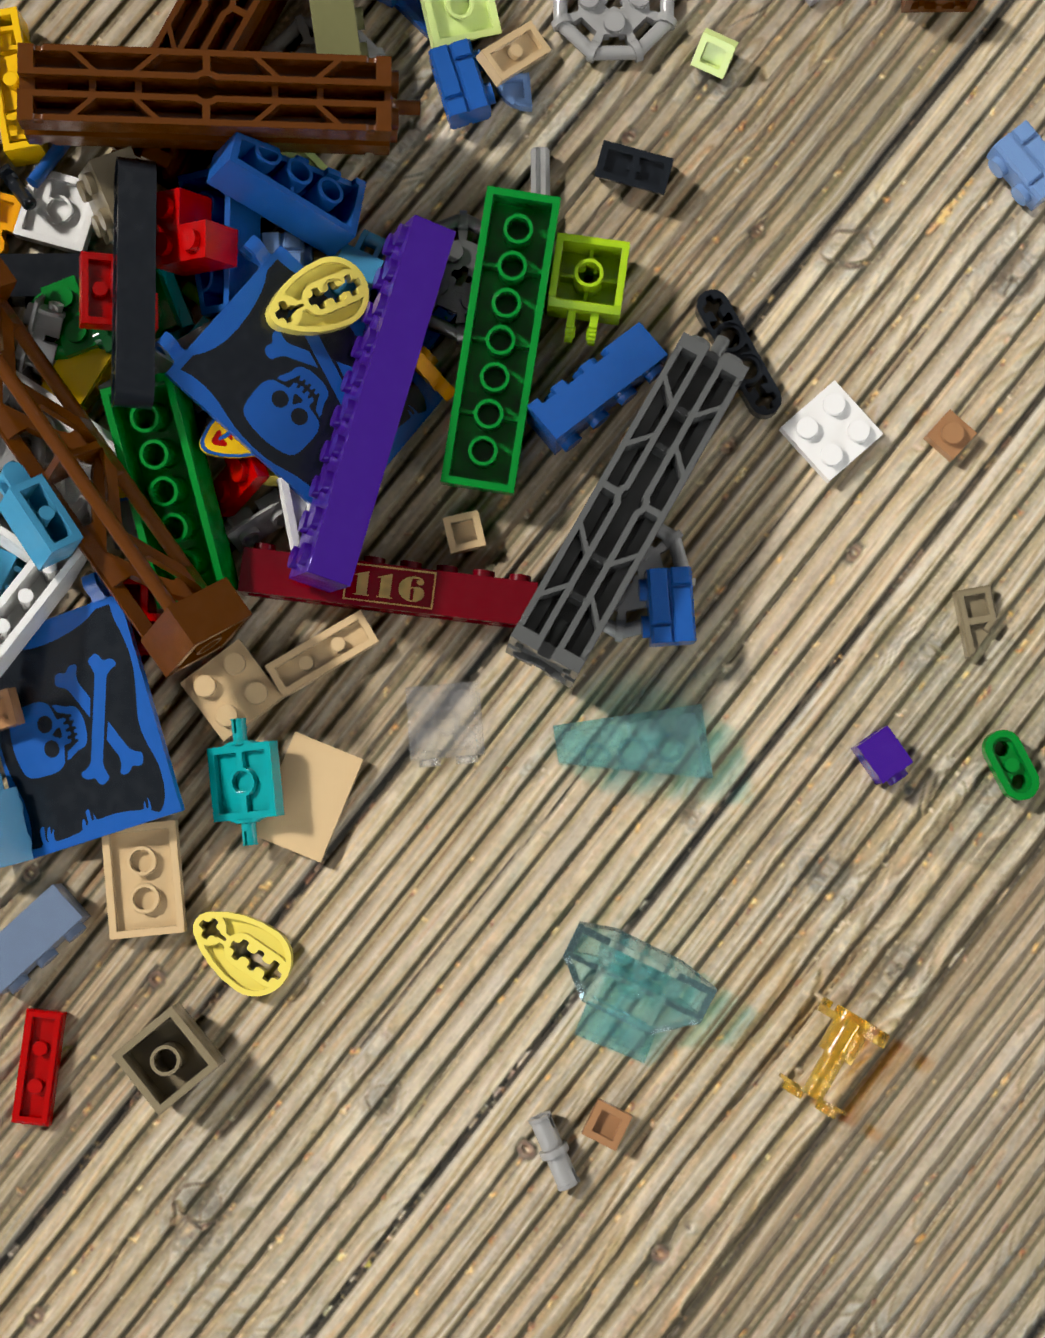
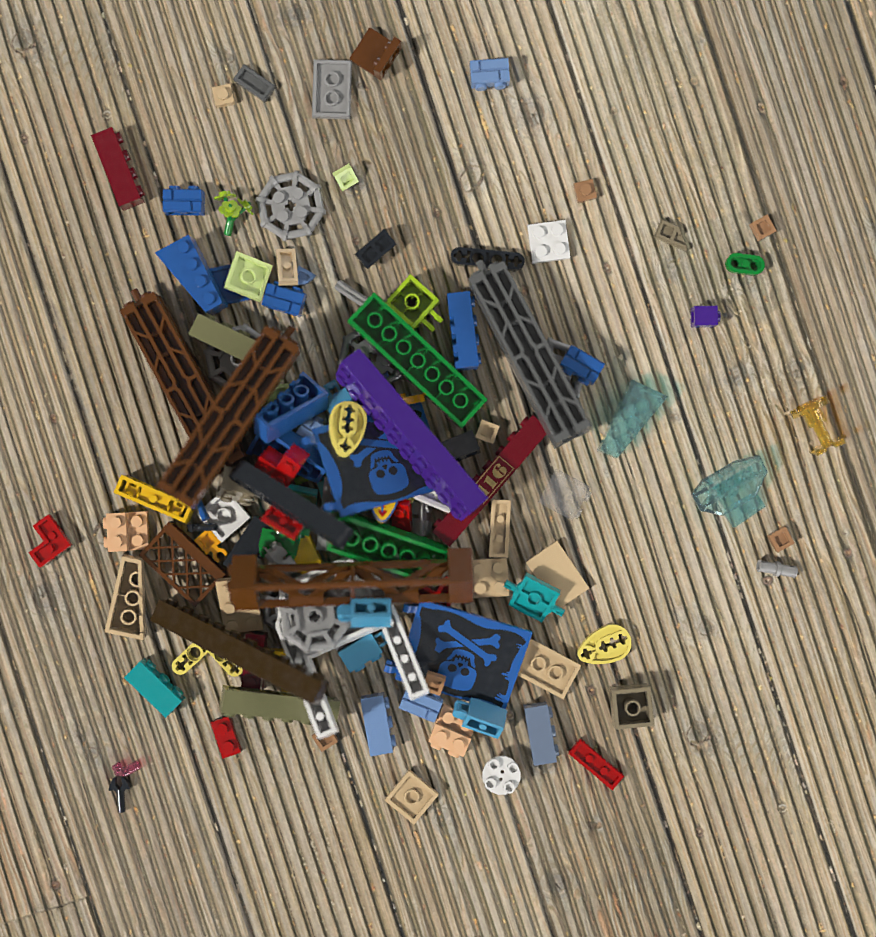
camera: 55 degrees left, 5 degrees up
(409, 505) = (462, 446): none -> black hinge

